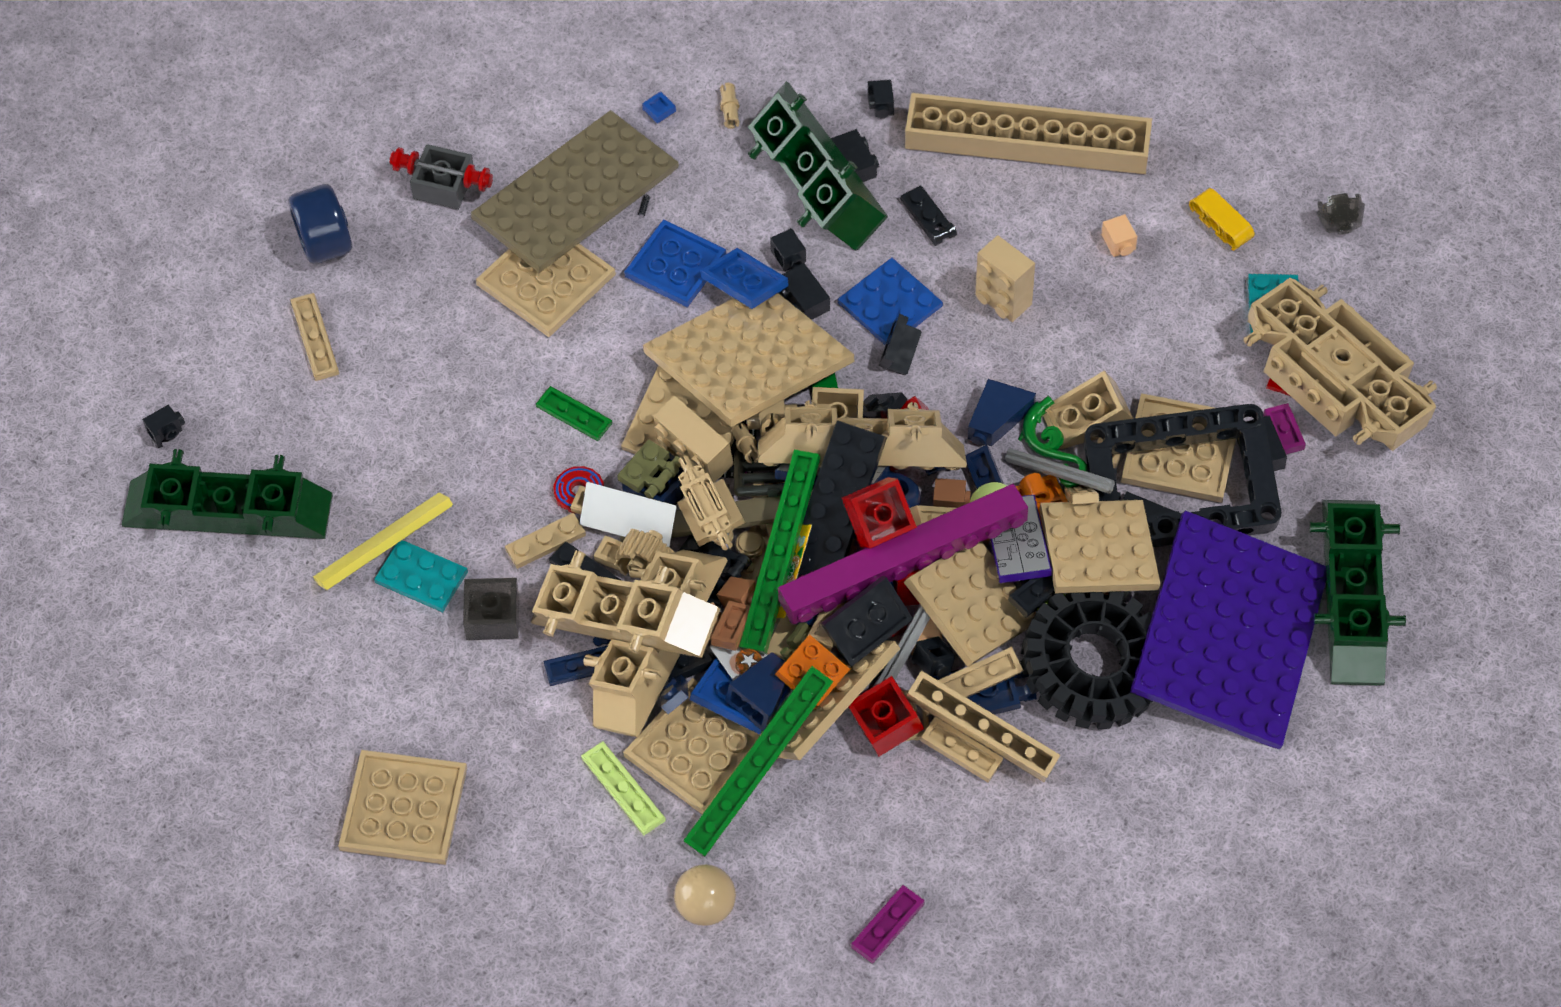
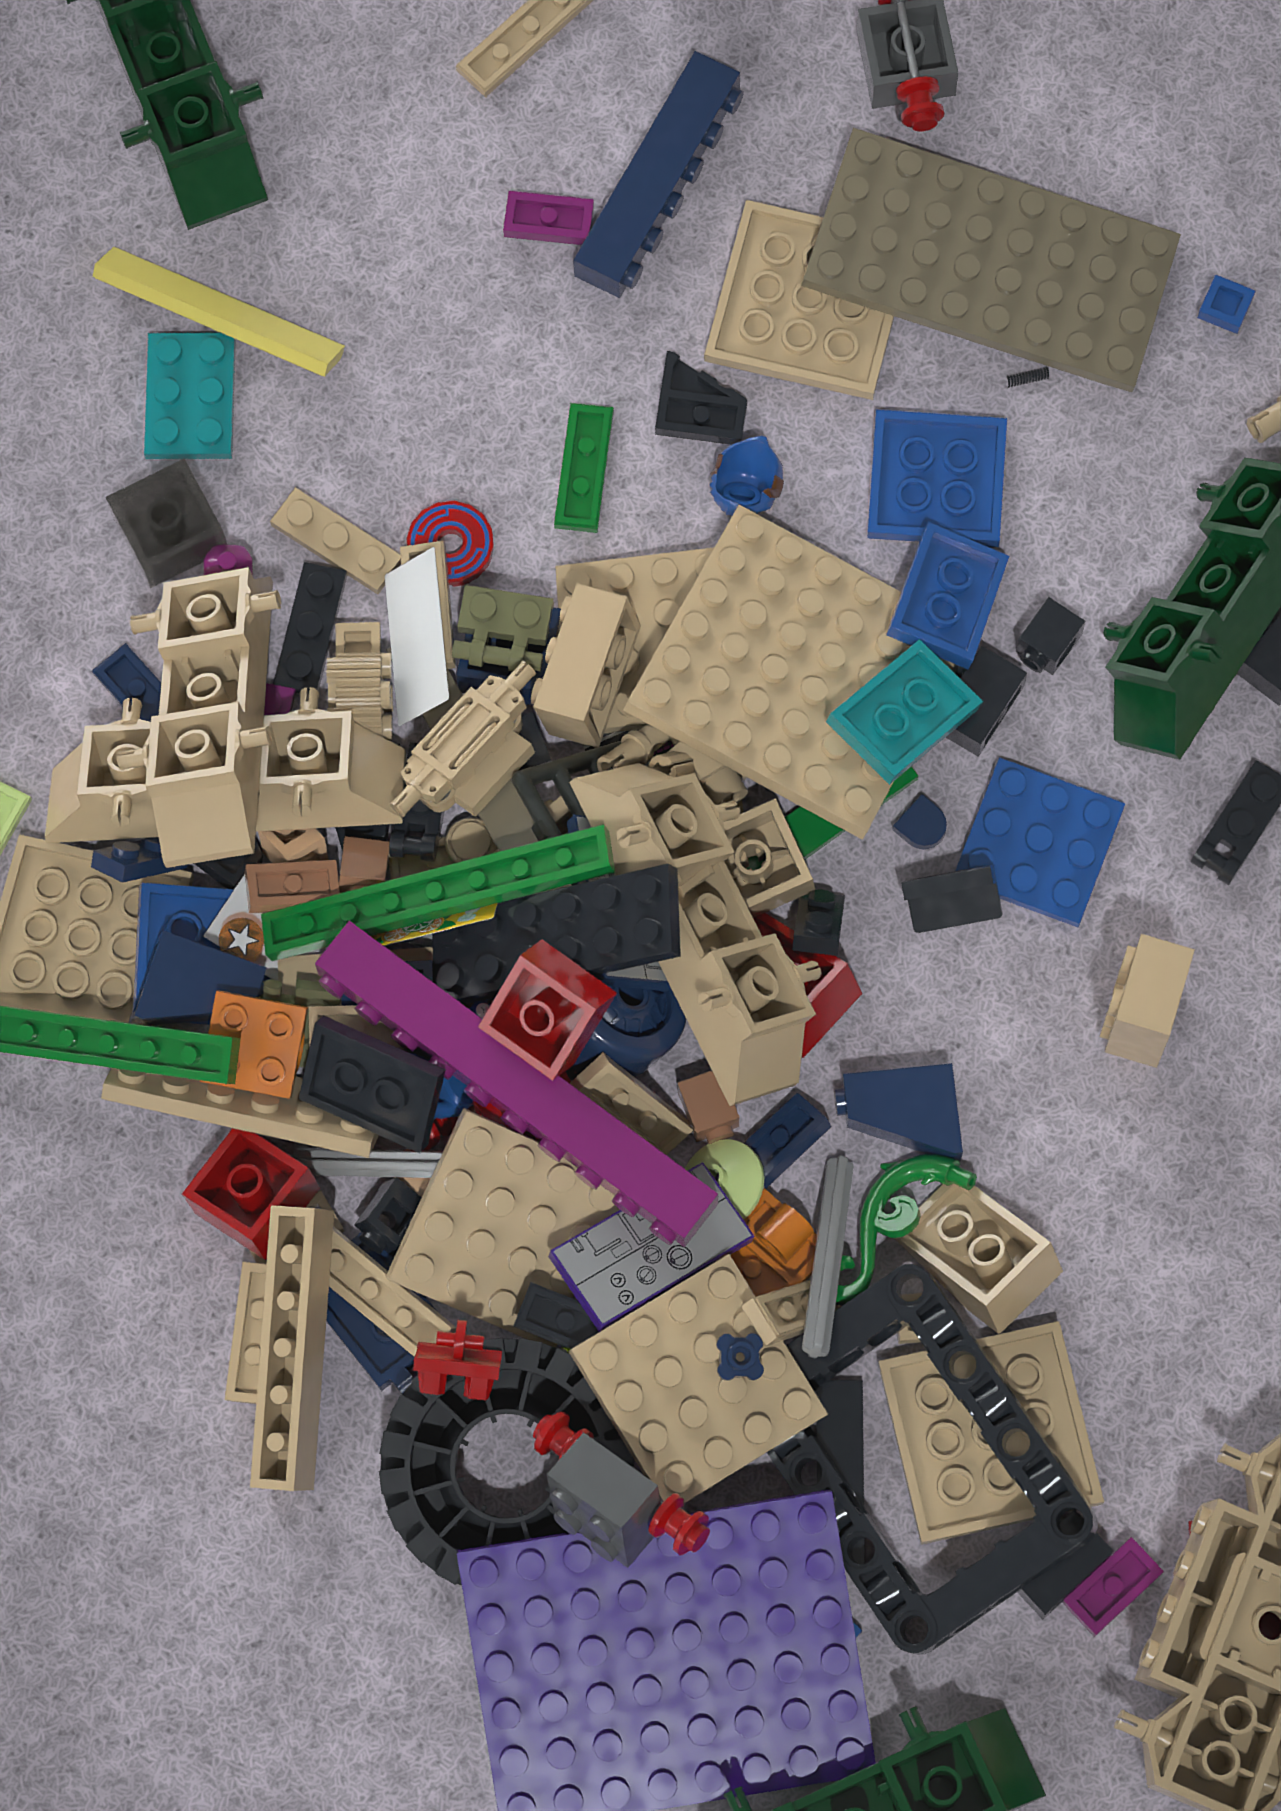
camera: 65 degrees right, 15 degrees up
(428, 370) = (548, 218): none -> magenta plate
(437, 312) = (658, 174): none -> dark blue brick
(530, 590) = (227, 558): none -> magenta piece
(572, 348) = (697, 406): none -> black wing
(626, 339) = (747, 476): none -> blue hair
(799, 313) = (904, 711): none -> teal plate
(855, 344) = (922, 824): none -> dark blue tile
(1035, 636) = (459, 1356): none -> red hips
(1098, 516) = (730, 1366): none -> dark blue plate
(1143, 596) = (609, 1498): none -> dark grey brick

